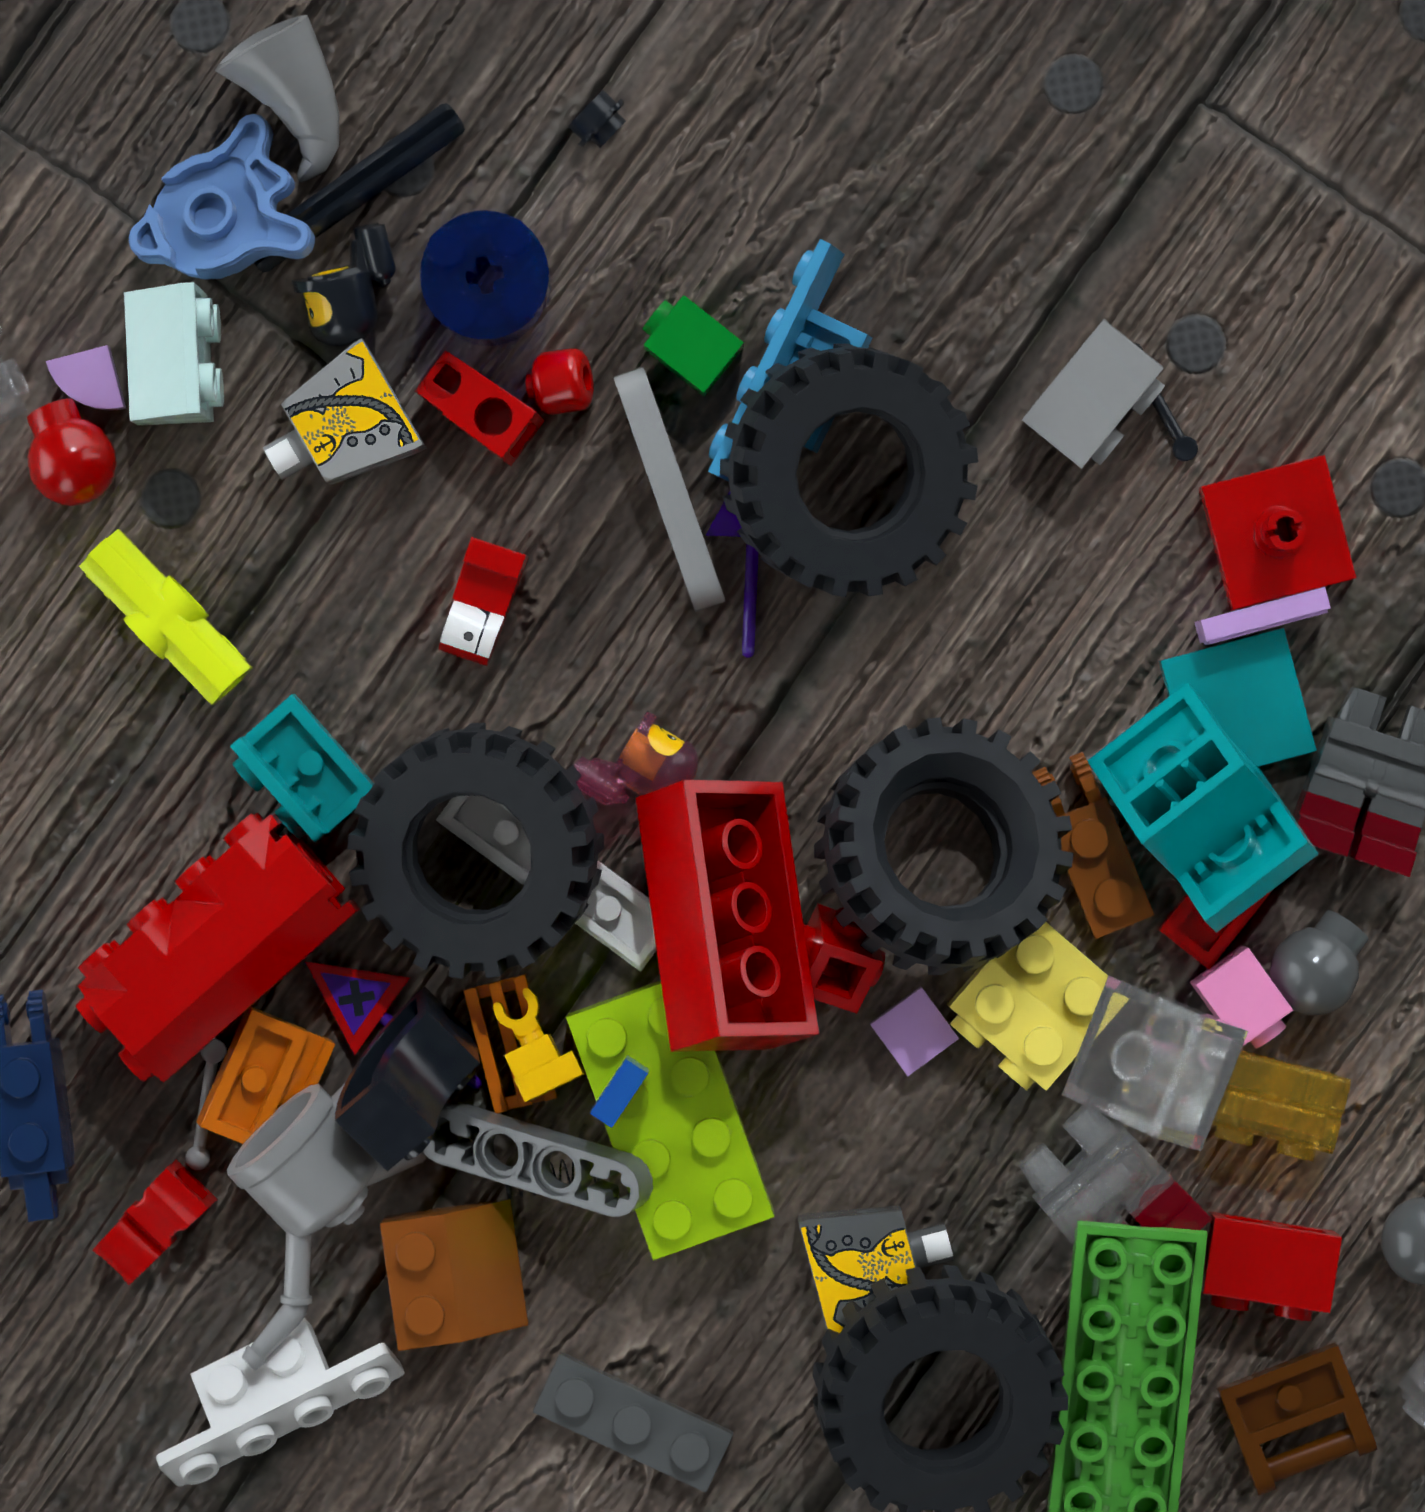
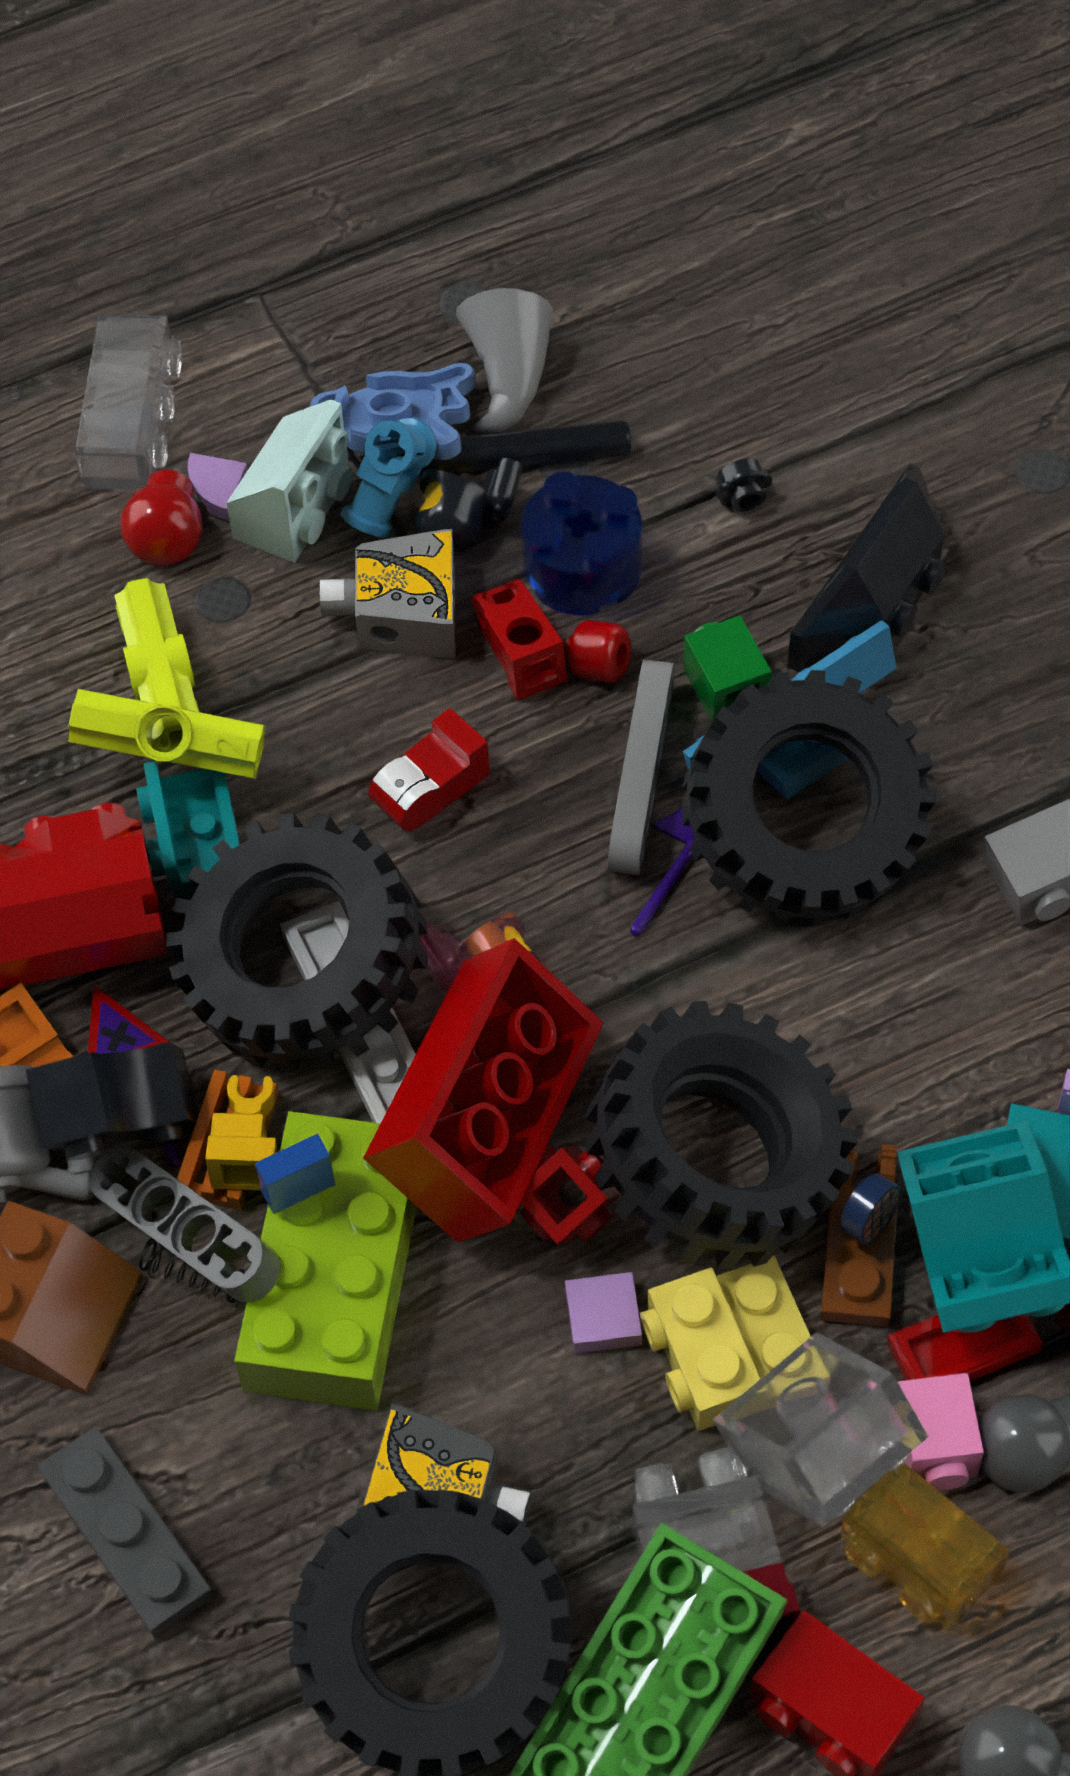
camera: 30 degrees right, 30 degrees down
(198, 718) = (127, 727): none -> neon yellow piece
(263, 303) = (387, 473): none -> dark azure connector
(783, 166) = (878, 577): none -> black wedge
(1099, 843) = (870, 1208): none -> dark blue tile

